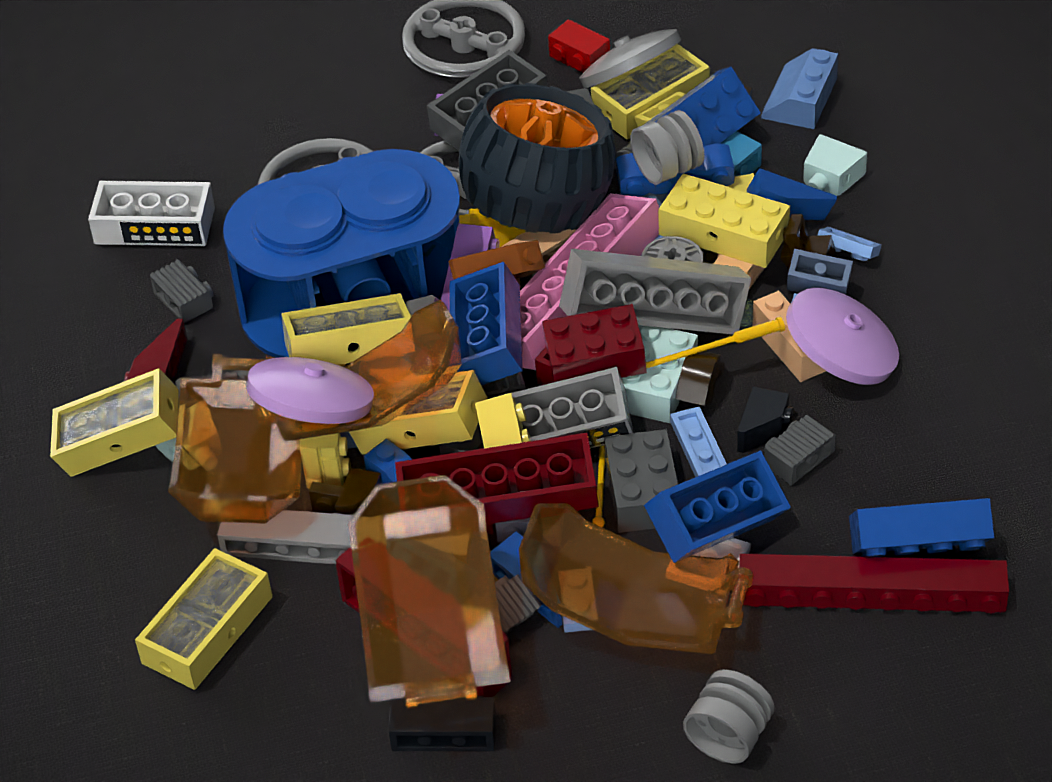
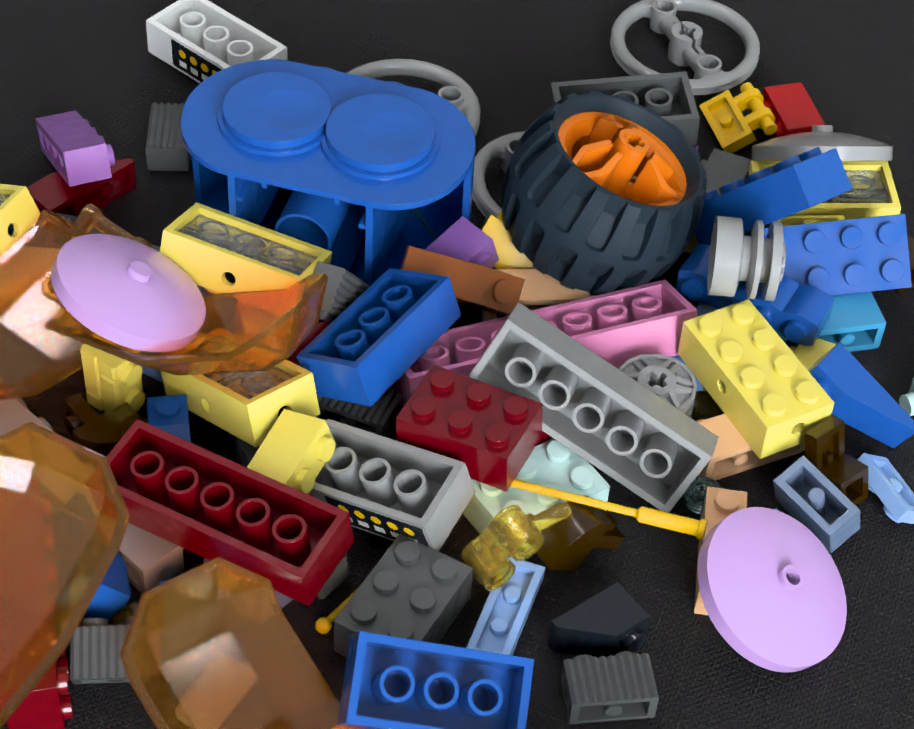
camera: 30 degrees right, 0 degrees up
(135, 332) = (75, 148): none -> medium lavender brick
(555, 71) = (728, 122): none -> yellow plate
(647, 94) = (776, 194): none -> blue brick
(675, 397) = (509, 535): none -> clear yellow beam

